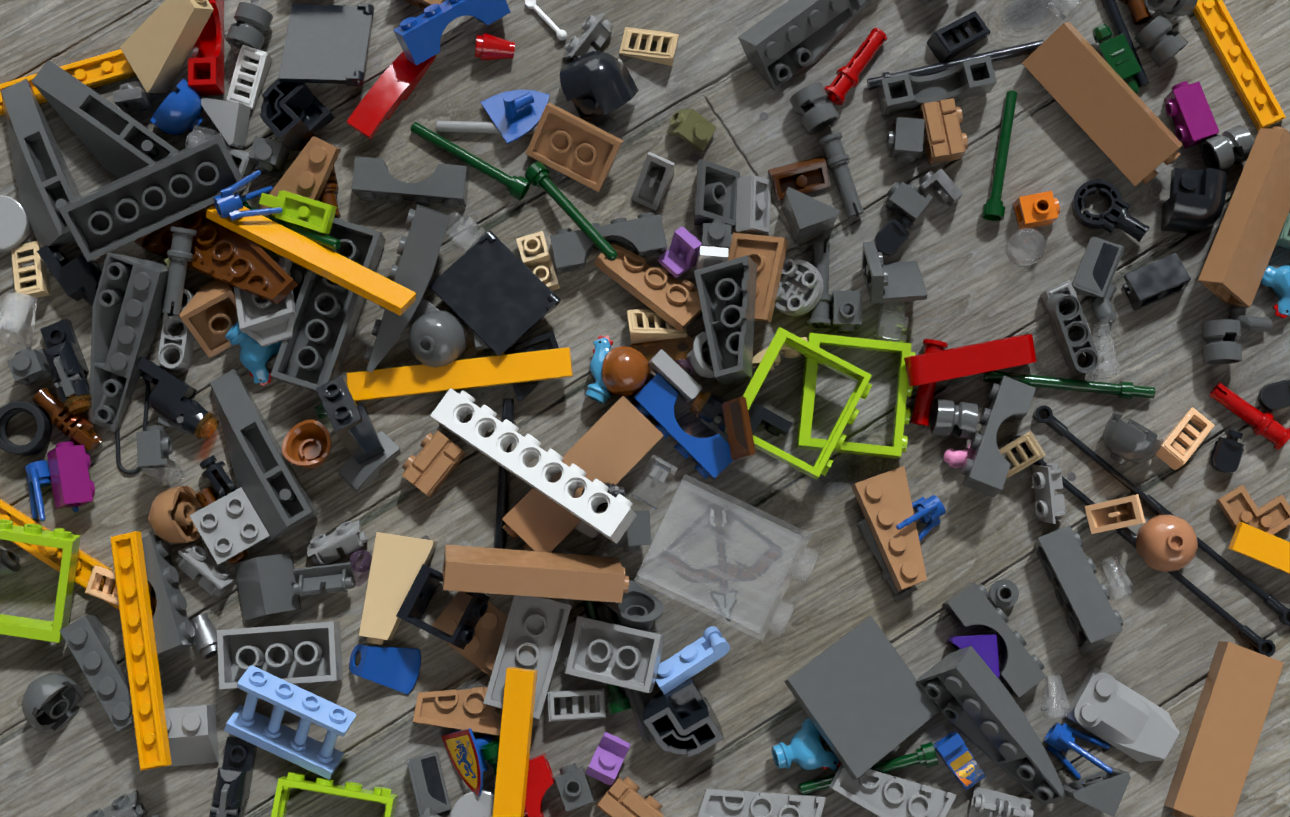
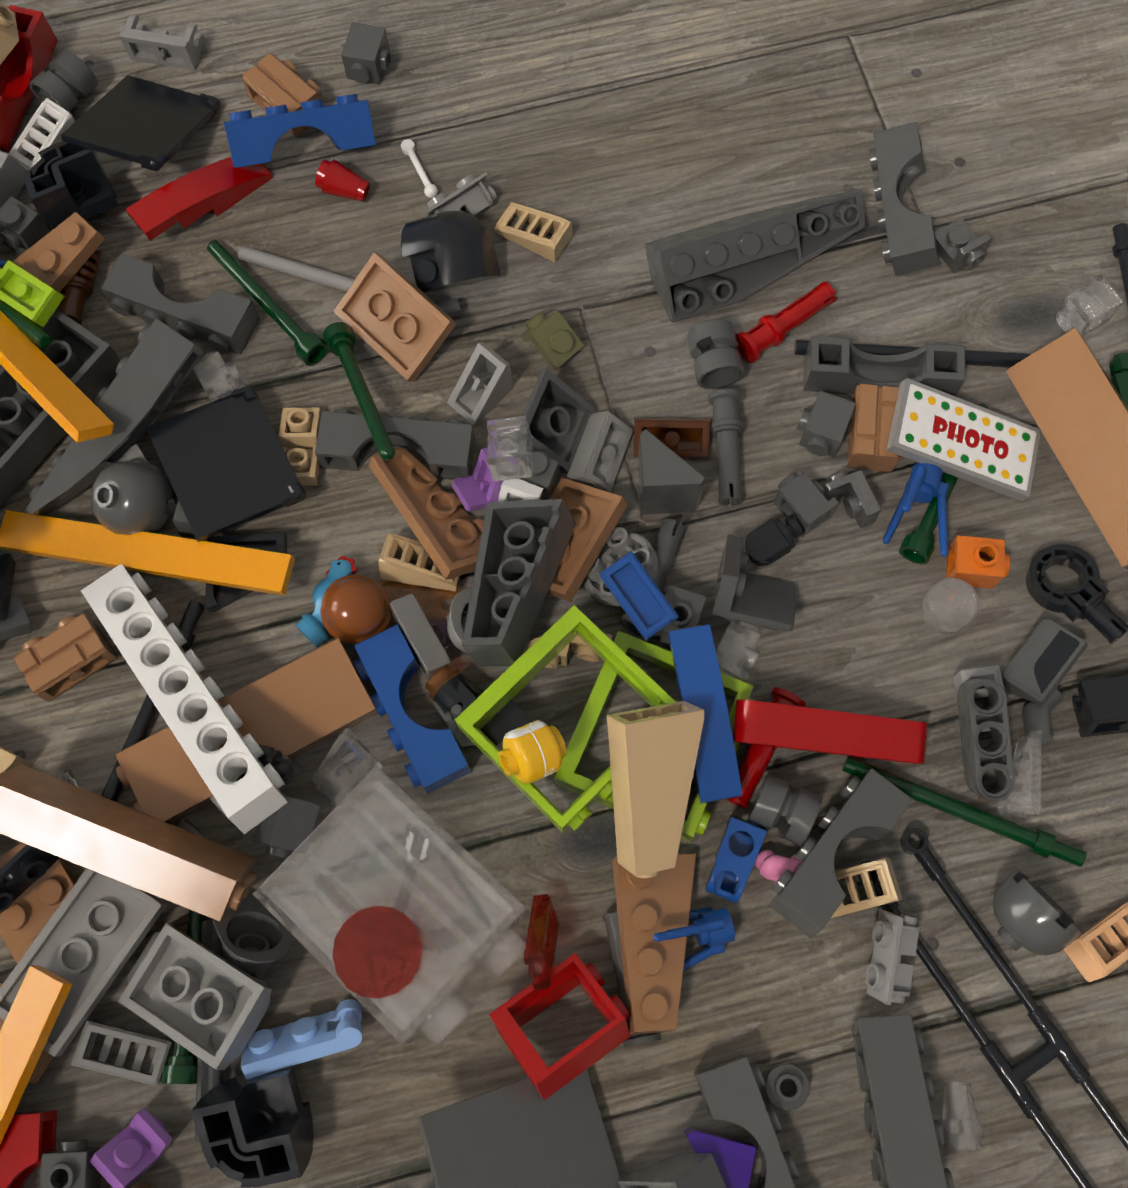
camera: 20 degrees right, 10 degrees down
(515, 112) = (337, 260): shield -> none
(698, 228) = (509, 448): none -> clear brick
(729, 590) = (378, 952): none -> clear red tile
(738, 428) = (470, 725): reddish brown slope -> none
(786, 434) = (532, 751): none -> yellow head
(818, 305) = (638, 596): none -> blue tile
(825, 552) = (541, 941): none -> clear red tile
(860, 566) = (531, 1002): none -> red window
(867, 429) = (651, 782): none -> tan slope
(886, 373) = (701, 685): none -> blue slope
(930, 461) = (735, 859): none -> blue leg
(945, 48) = (907, 329): black slope -> none
(985, 166) = (923, 487): none -> blue plant
(1005, 123) = (964, 439): none -> tile
(1114, 514) = (983, 1019): light nougat slope -> none
(1166, 543) = (1051, 1088): nougat cylinder -> none

